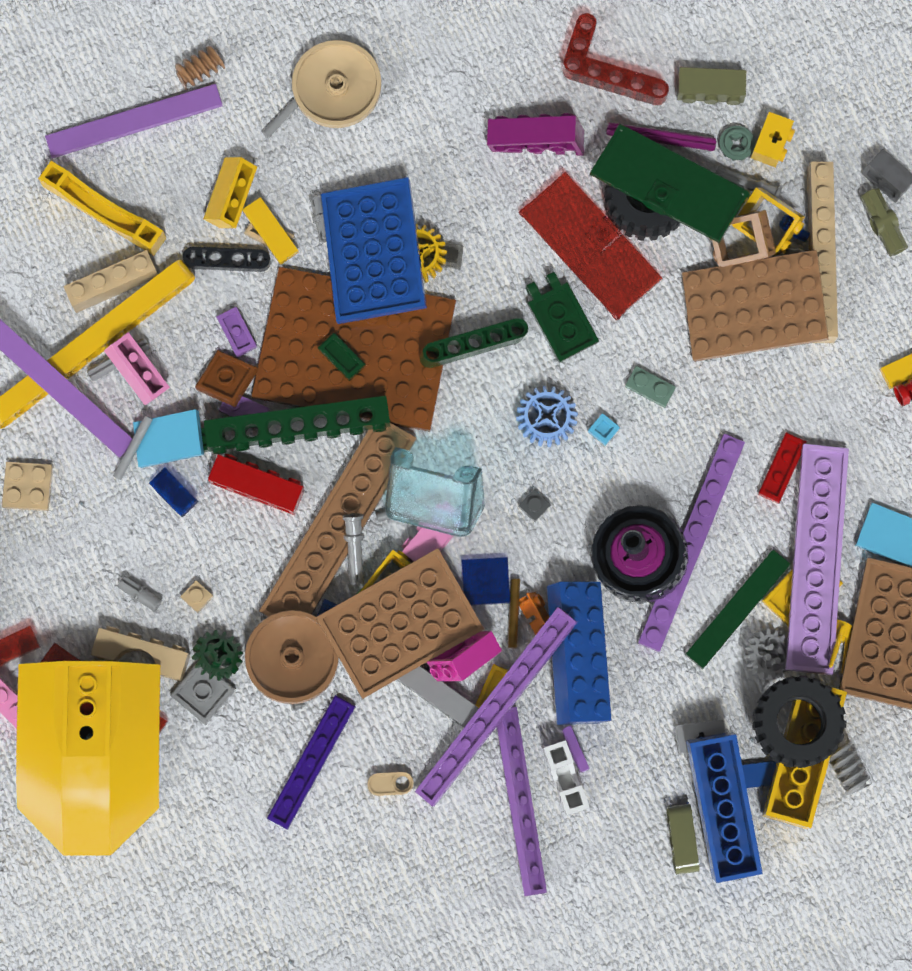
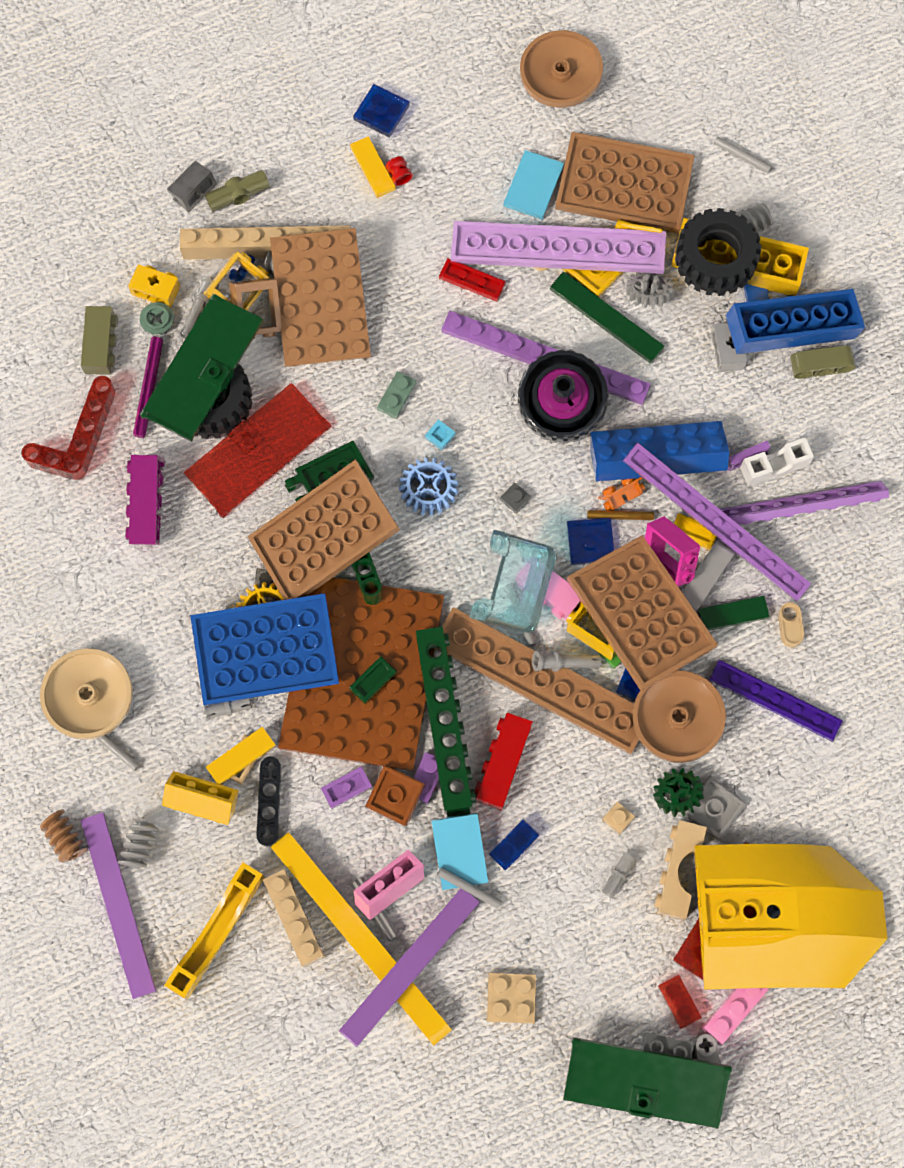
camera: 90 degrees left, 5 degrees down
(188, 138) = (138, 844): none -> light grey piece
(404, 725) = (734, 613): none -> dark green tile
(492, 307) = (323, 532): none -> medium nougat plate

